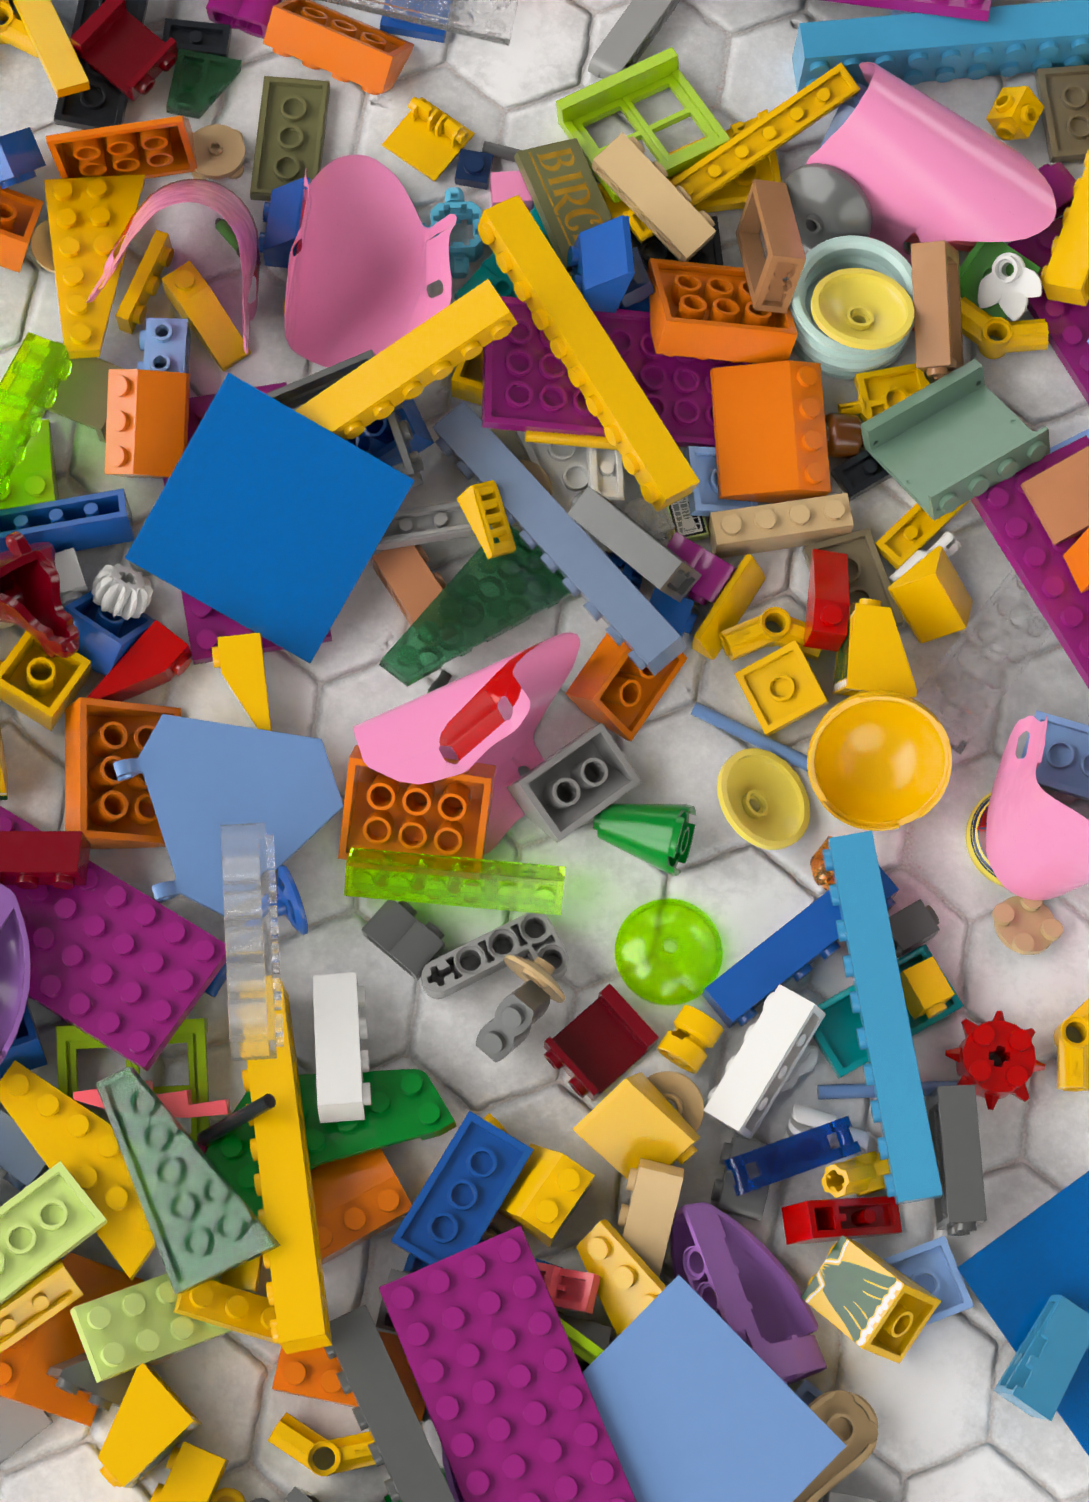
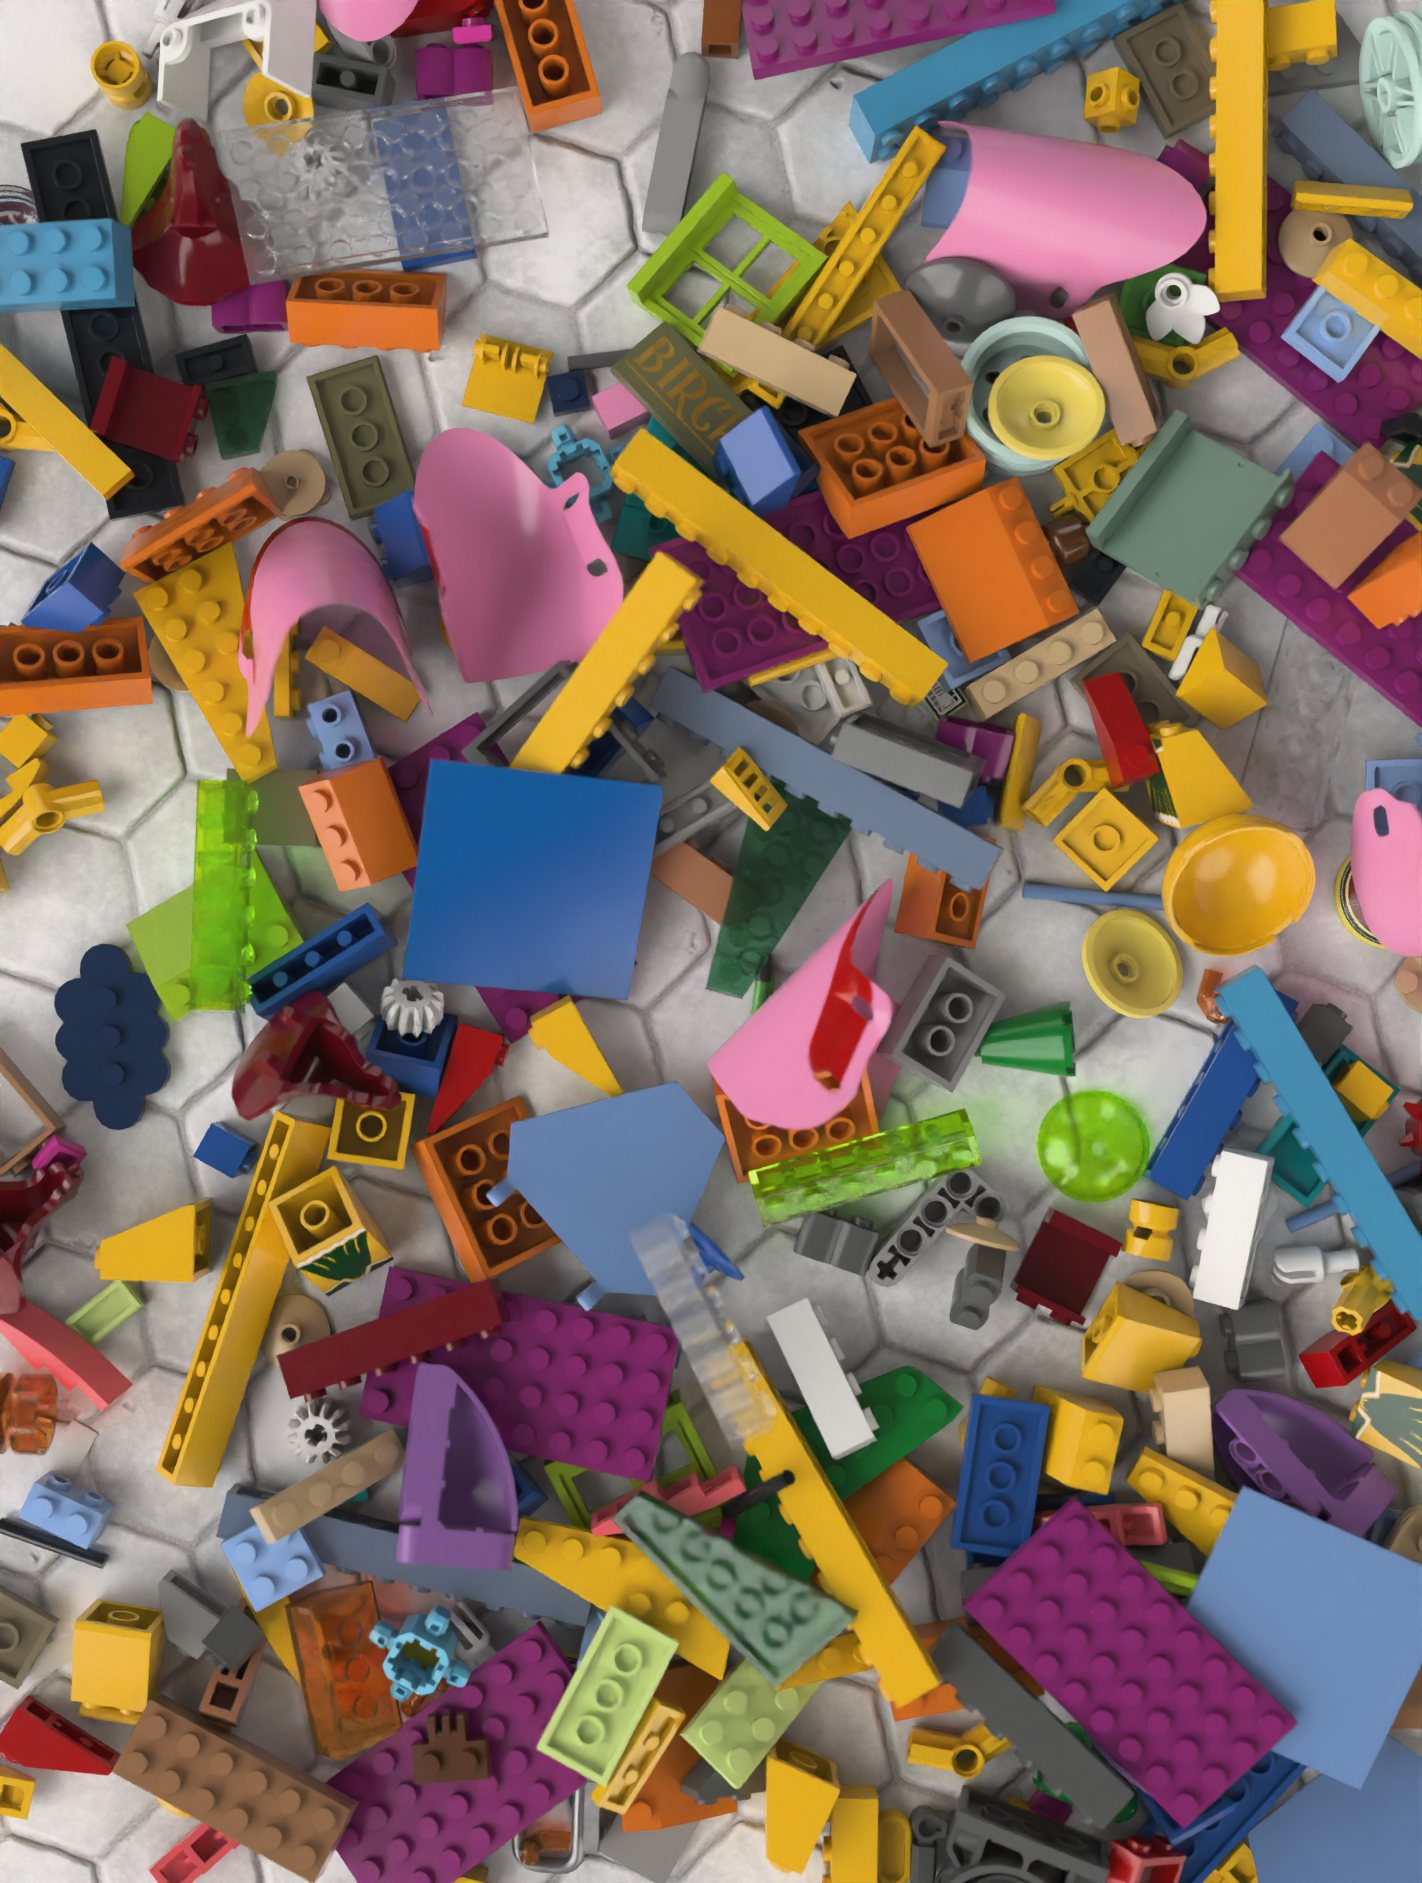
camera: 15 degrees left, 15 degrees up
(792, 1155) = (1296, 1311): clear blue plate -> none

